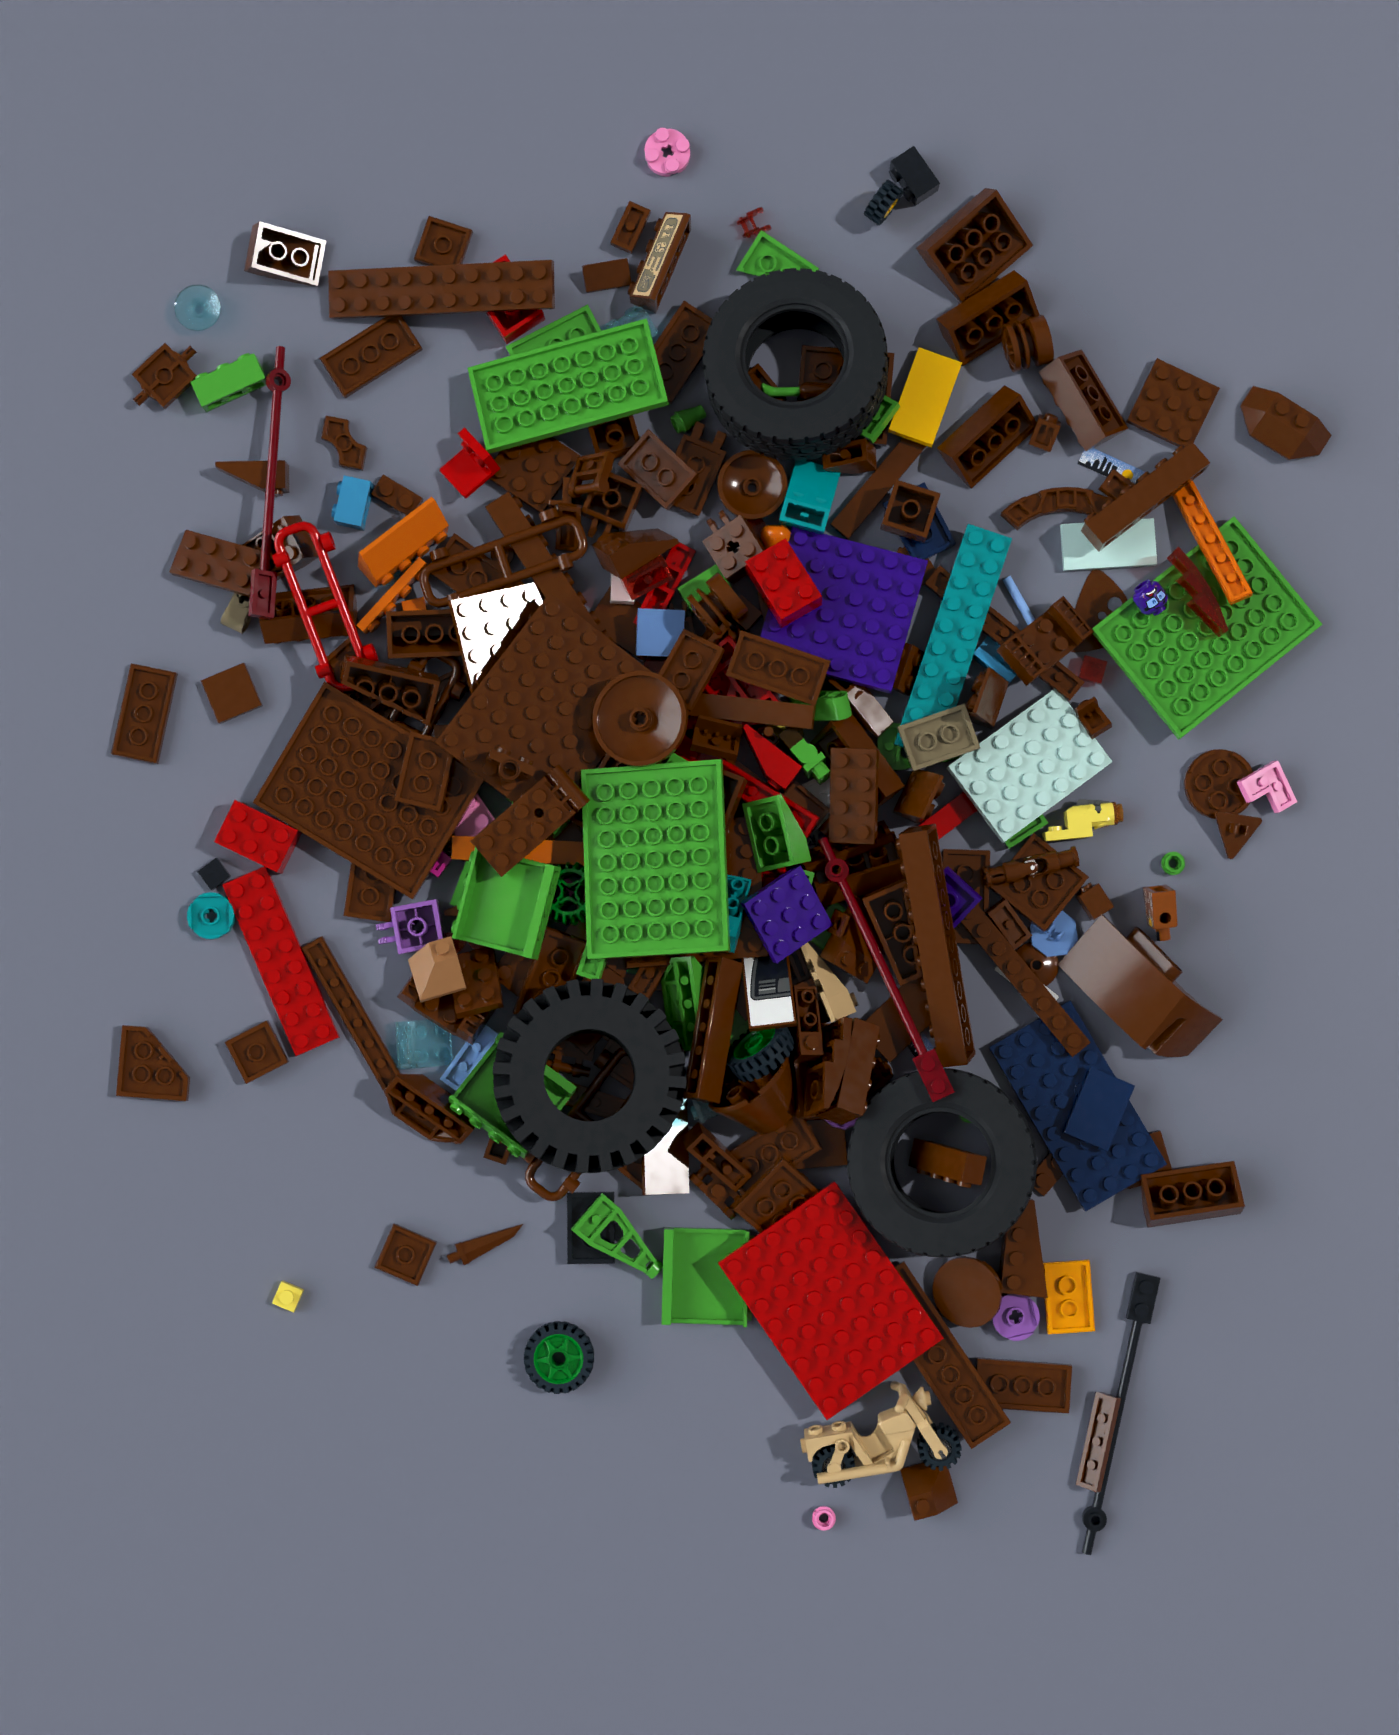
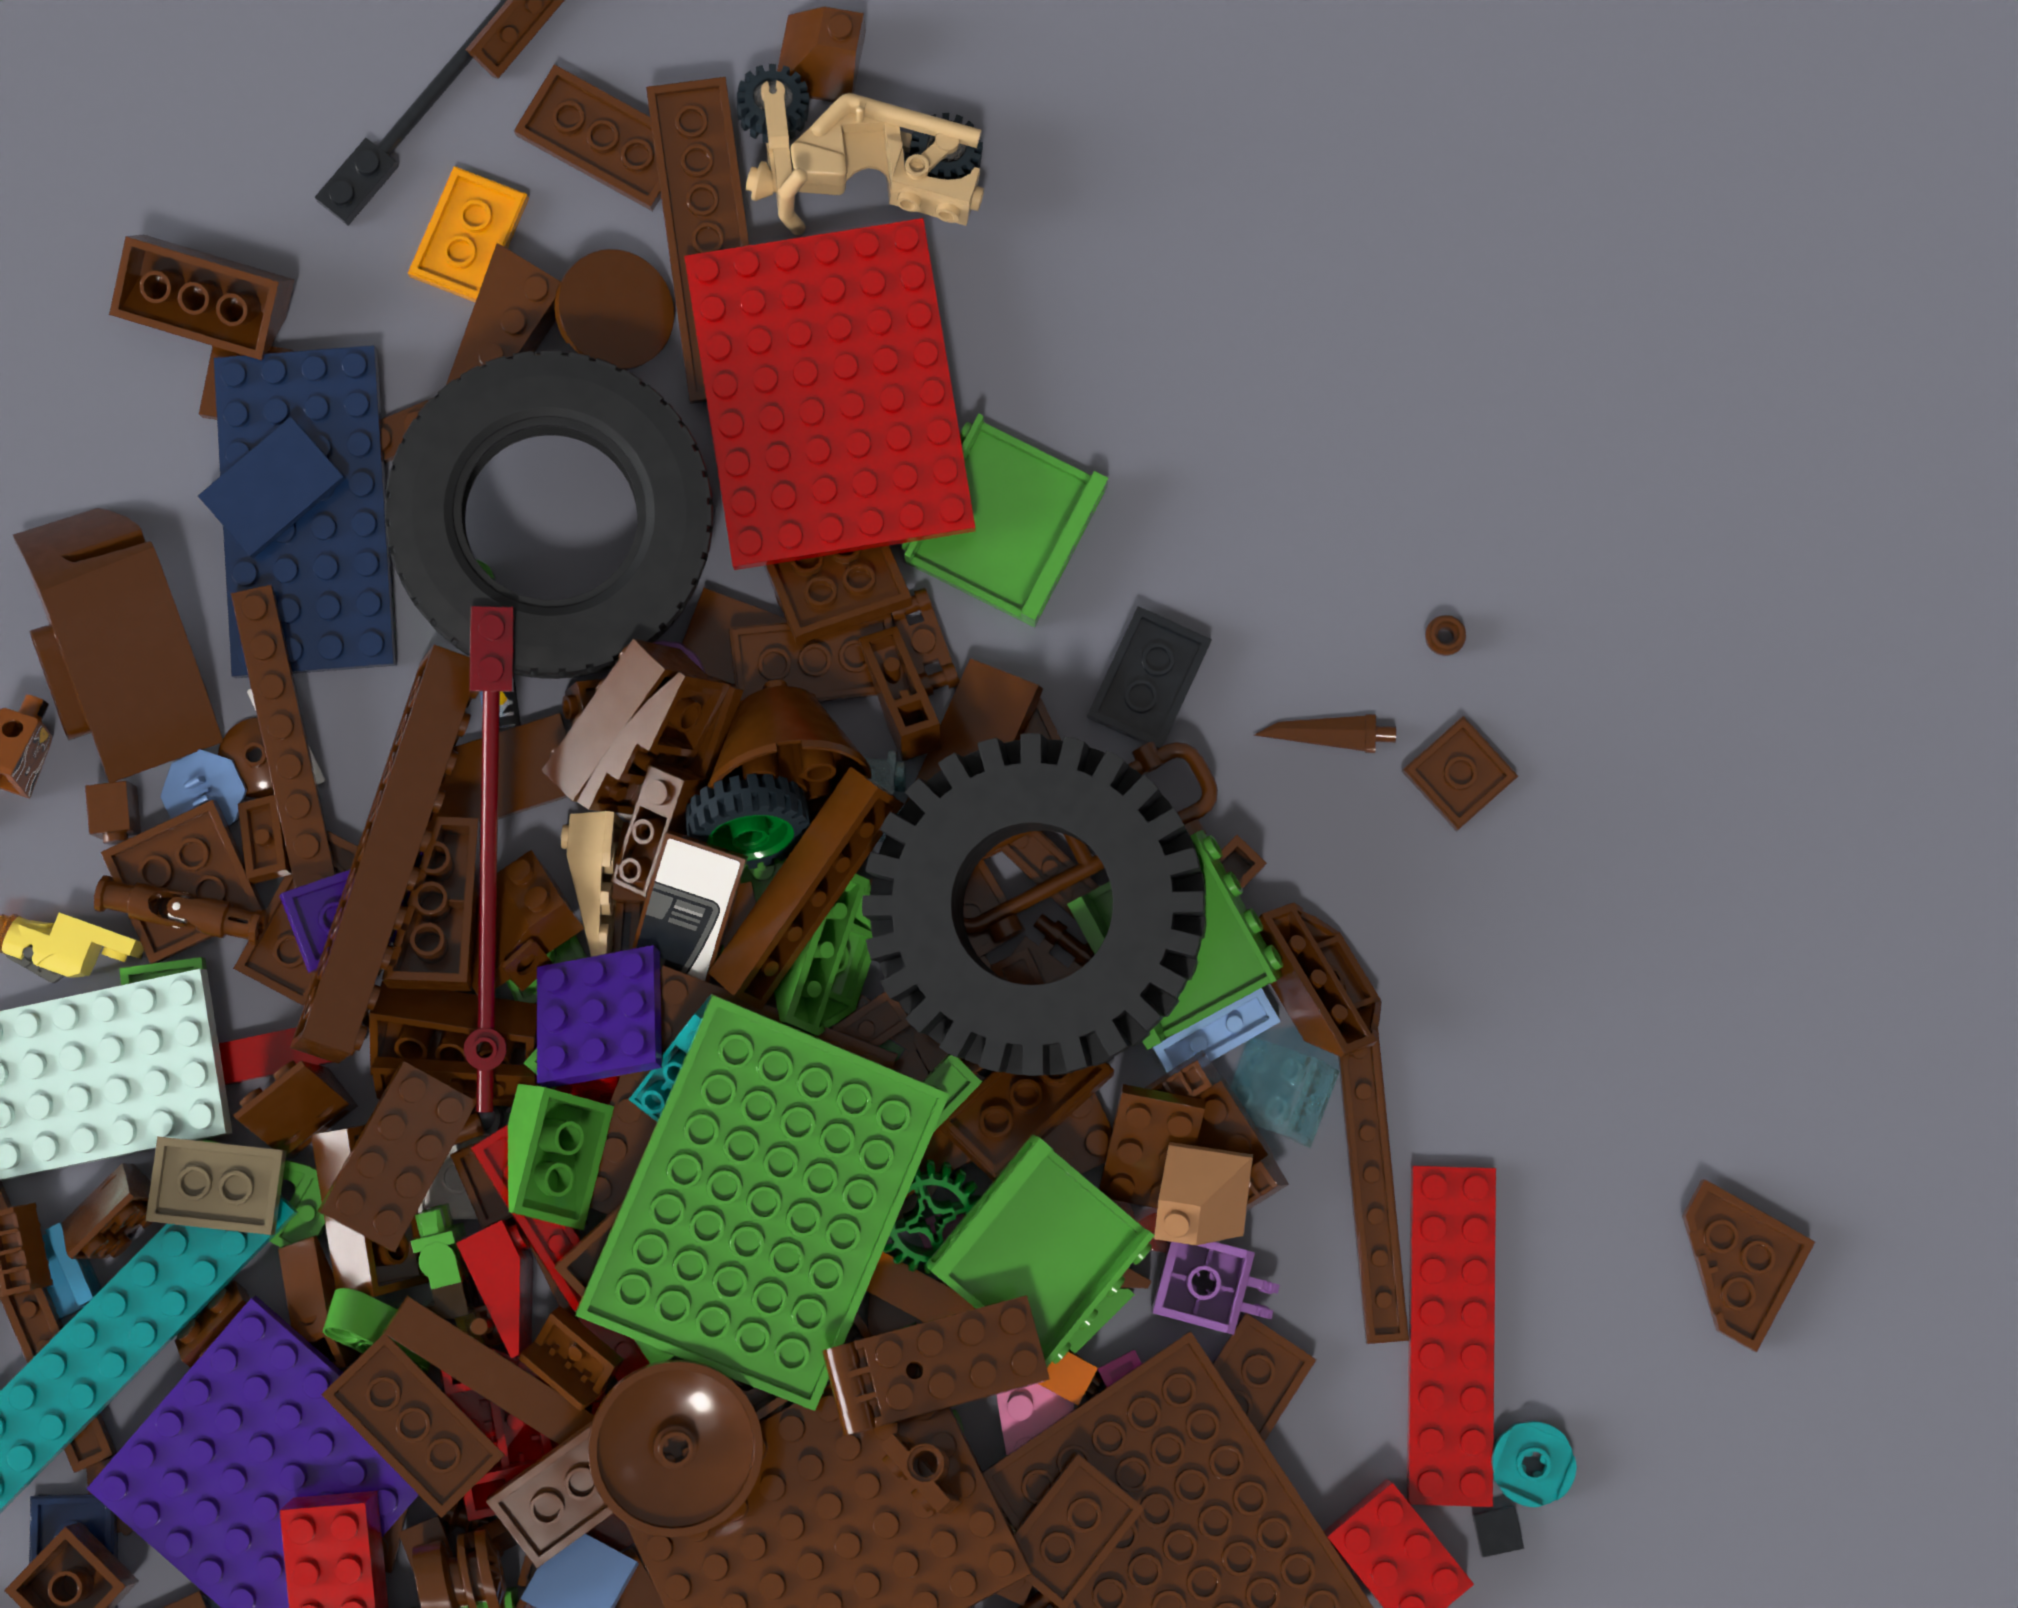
camera: 160 degrees left, 5 degrees down
(257, 1052) = (1555, 1204): reddish brown plate -> none
(288, 1296) = (1675, 795): light yellow plate -> none
(441, 1330) = (1450, 624): none -> reddish brown plate
(559, 1376) = (1296, 474): wheel -> none
(595, 1221) = (1133, 683): bright green plate -> none
(826, 1525) = (996, 74): bright pink plate -> none
(947, 1163) = (541, 511): reddish brown brick -> none
(1026, 1324) = (551, 224): medium lavender plate -> none

